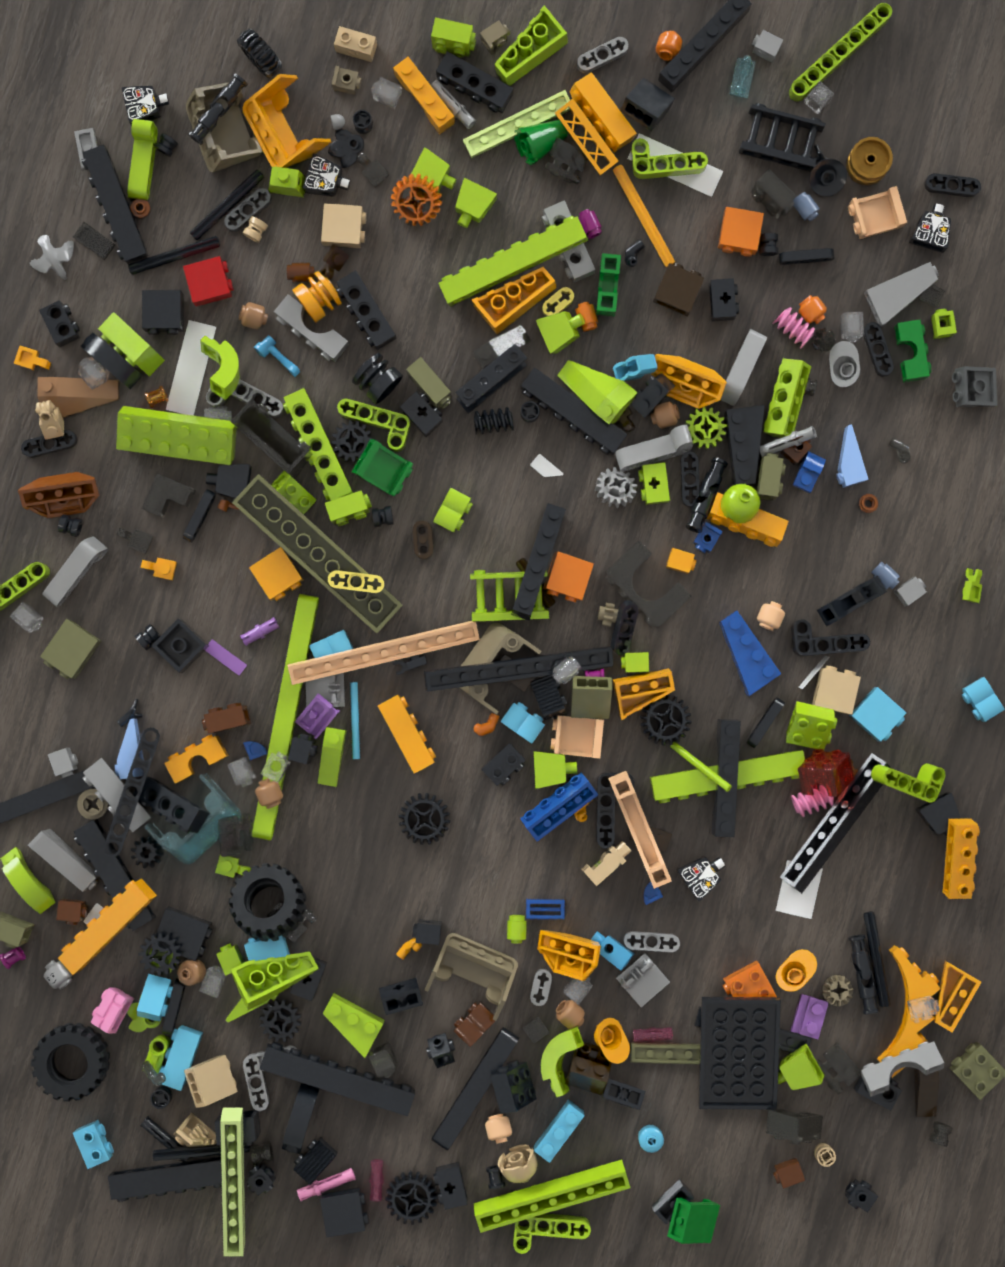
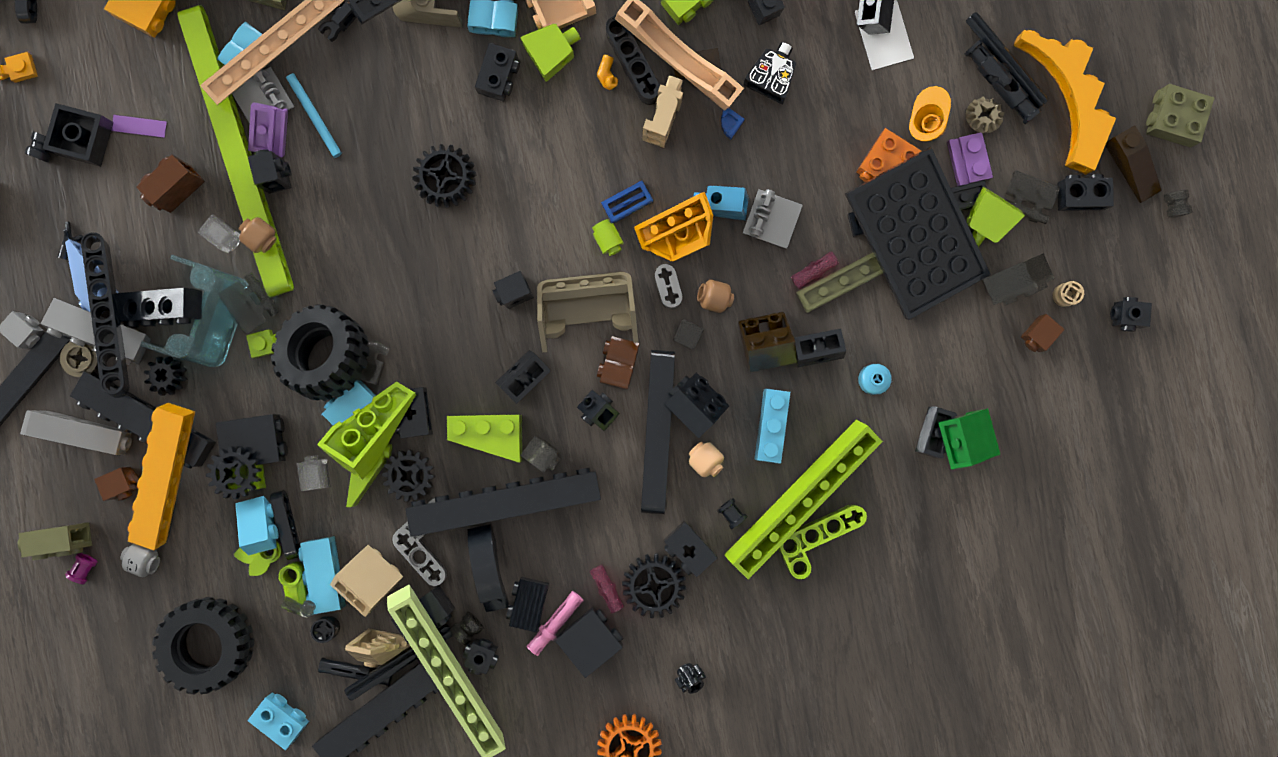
camera: 30 degrees left, 0 degrees up
(25, 883) = (49, 480): lime arch -> none
(111, 1010) = (219, 565): bright pink brick -> none
(180, 765) = (150, 261): light orange arch -> none
(191, 972) = (282, 476): medium nougat head -> none
(229, 958) = (311, 436): lime brick -> none
(255, 749) = (223, 205): blue tile -> none
(259, 631) = (159, 76): medium lavender pin -> none
(269, 772) = (258, 206): clear brick -> none
(331, 756) = (307, 163): lime slope -> none
(406, 734) = (374, 95): light orange brick -> none
(407, 947) = (503, 320): light orange arm -> none
(488, 727) = (459, 44): orange arm -> none
(518, 1164) = (750, 485): tan cylinder -> none
(553, 1058) = (722, 347): lime arch -> none
(559, 806) = (580, 81): blue brick -> none
(577, 989) = (708, 263): clear brick -> none
(612, 1040) = (774, 297): light orange piece -> none
(666, 937) = (740, 175): light grey beam -> none
(923, 1008) = (1087, 76): clear brick -> none
(924, 1058) = (1119, 127): light grey arch -> none
(954, 996) = (1112, 47): light orange wedge -> none

